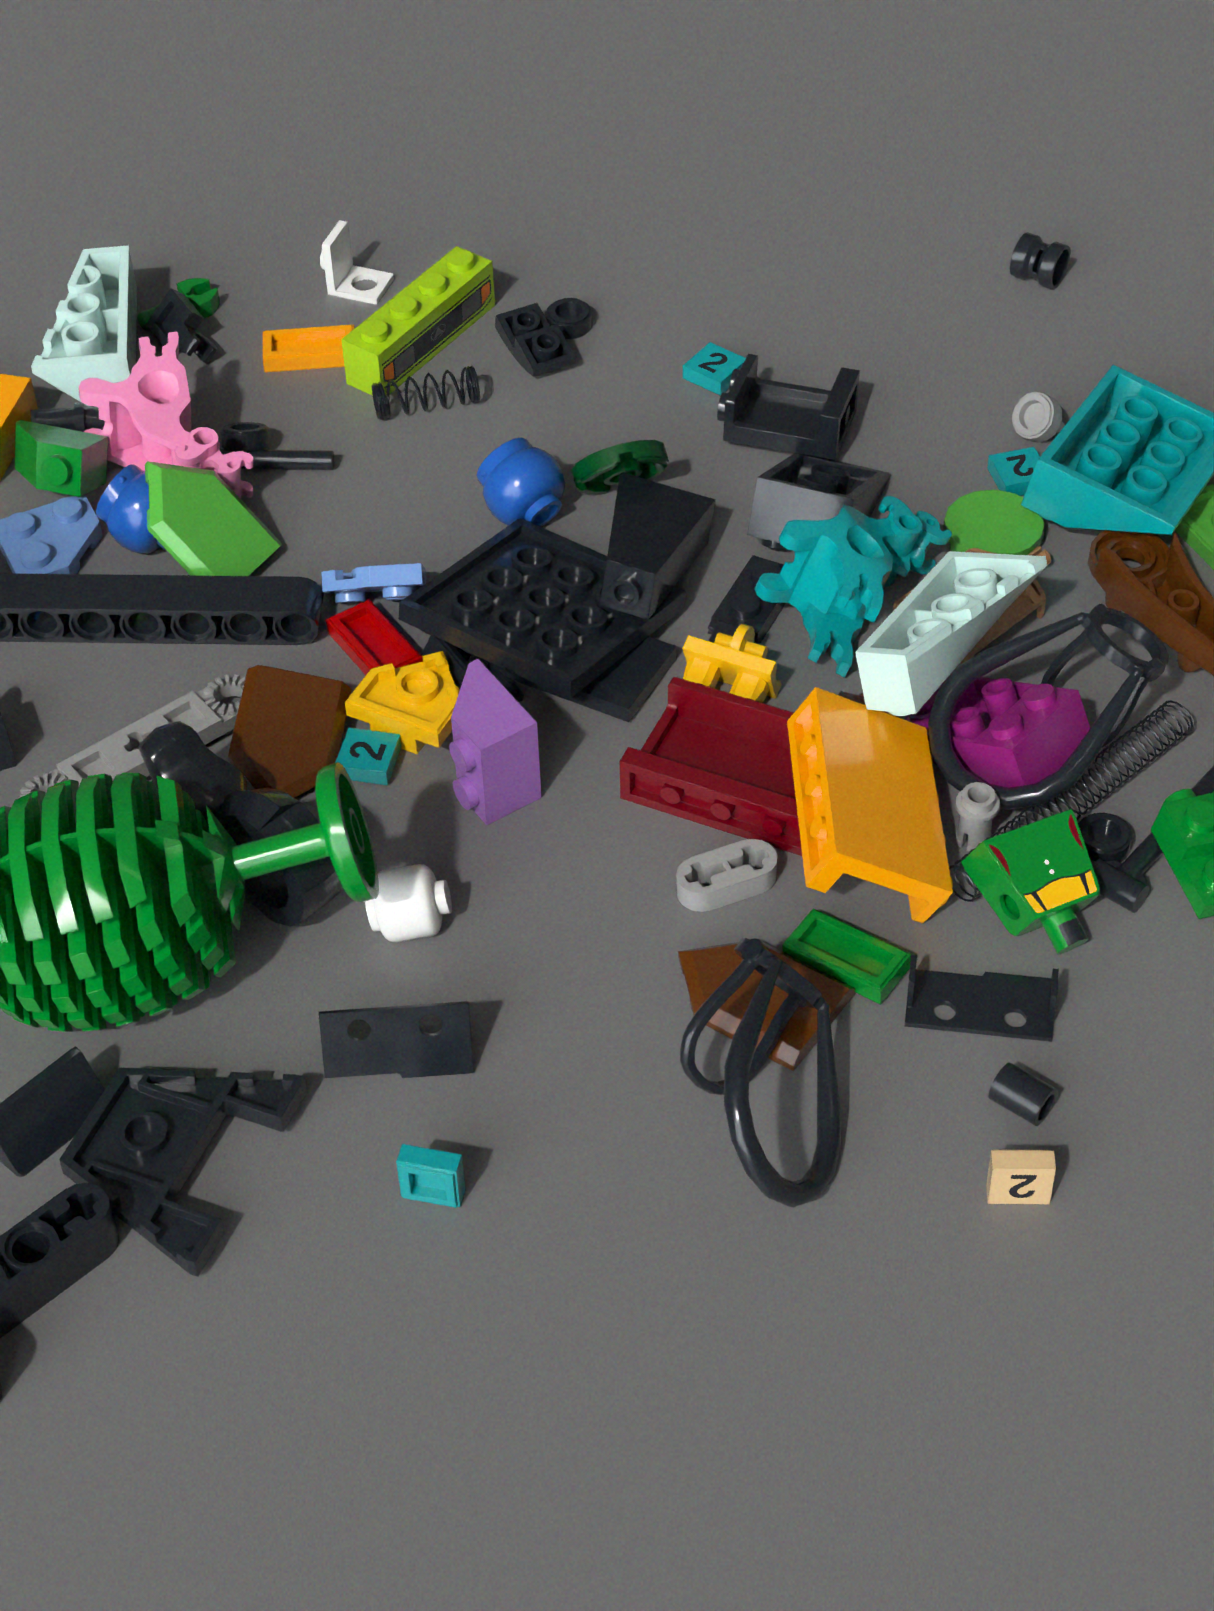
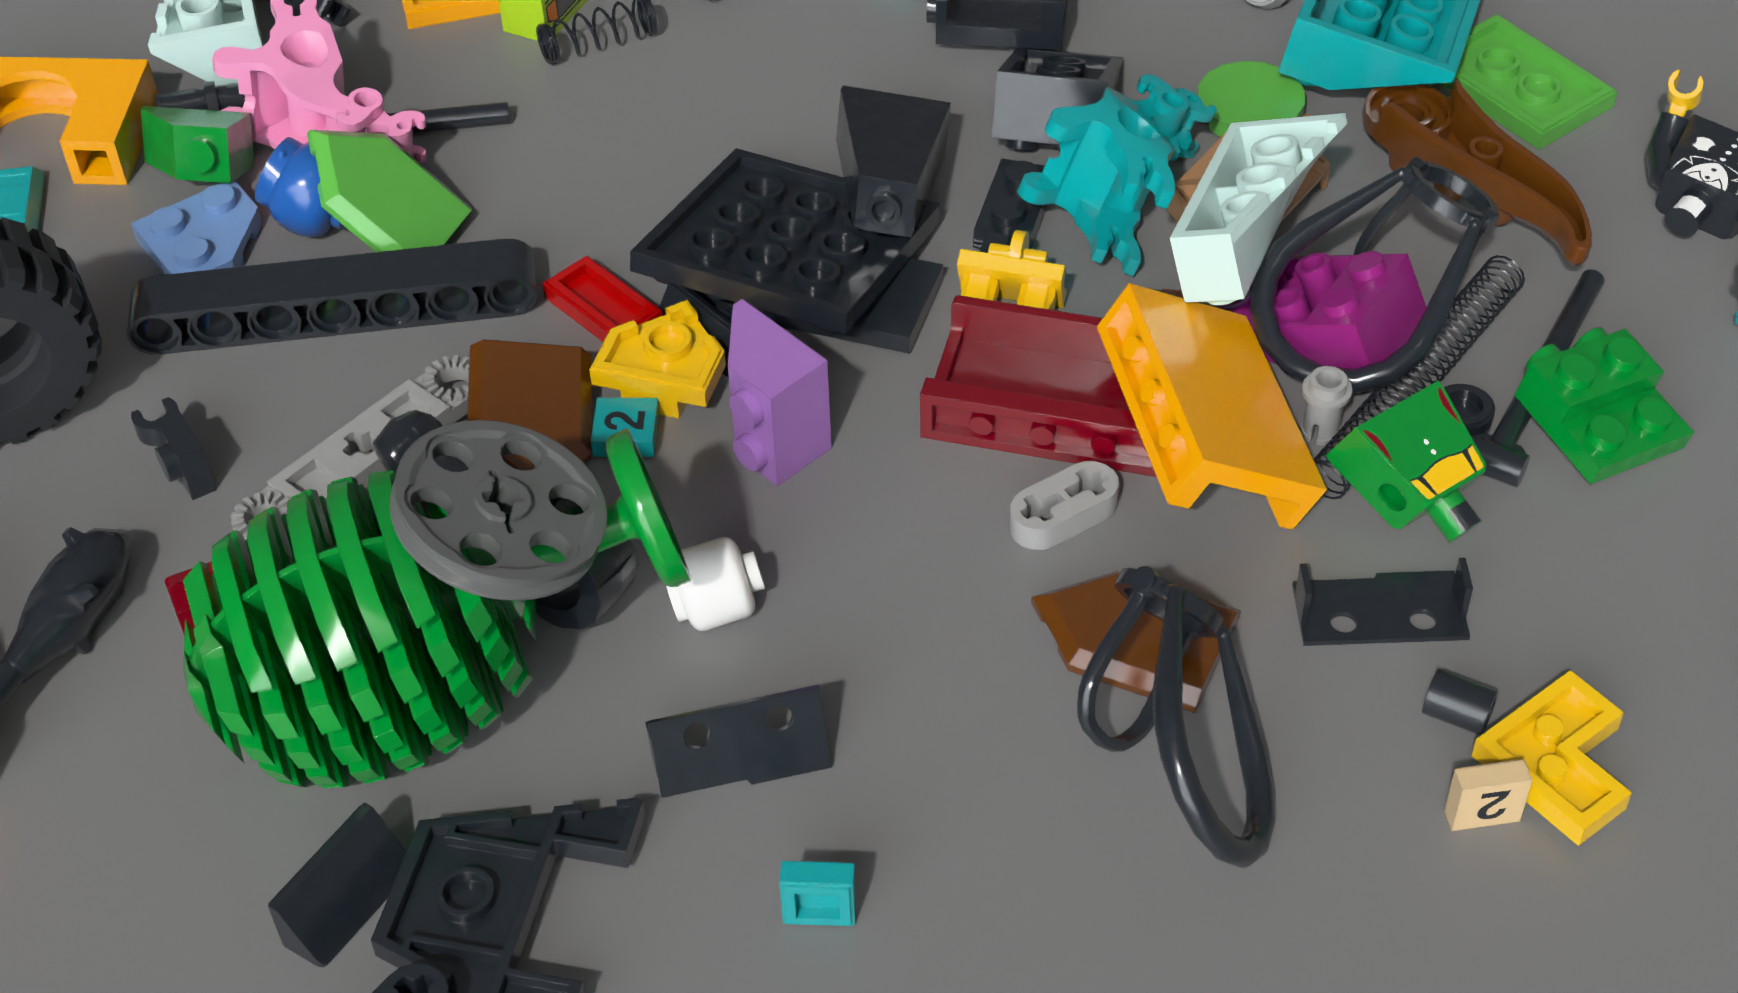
camera: 10 degrees left, 0 degrees up
(196, 826) = (481, 523): none -> dark grey wedge
(245, 436) = (406, 96): black tile -> none
(394, 580) = (614, 230): medium blue plate -> none
(521, 483) = (731, 110): blue piece -> none
(602, 469) = (822, 81): dark green tile -> none
(848, 955) = (1225, 574): green tile -> none
(1013, 469) = (1258, 39): teal tile -> none
(1087, 1148) = (1552, 738): none -> yellow plate

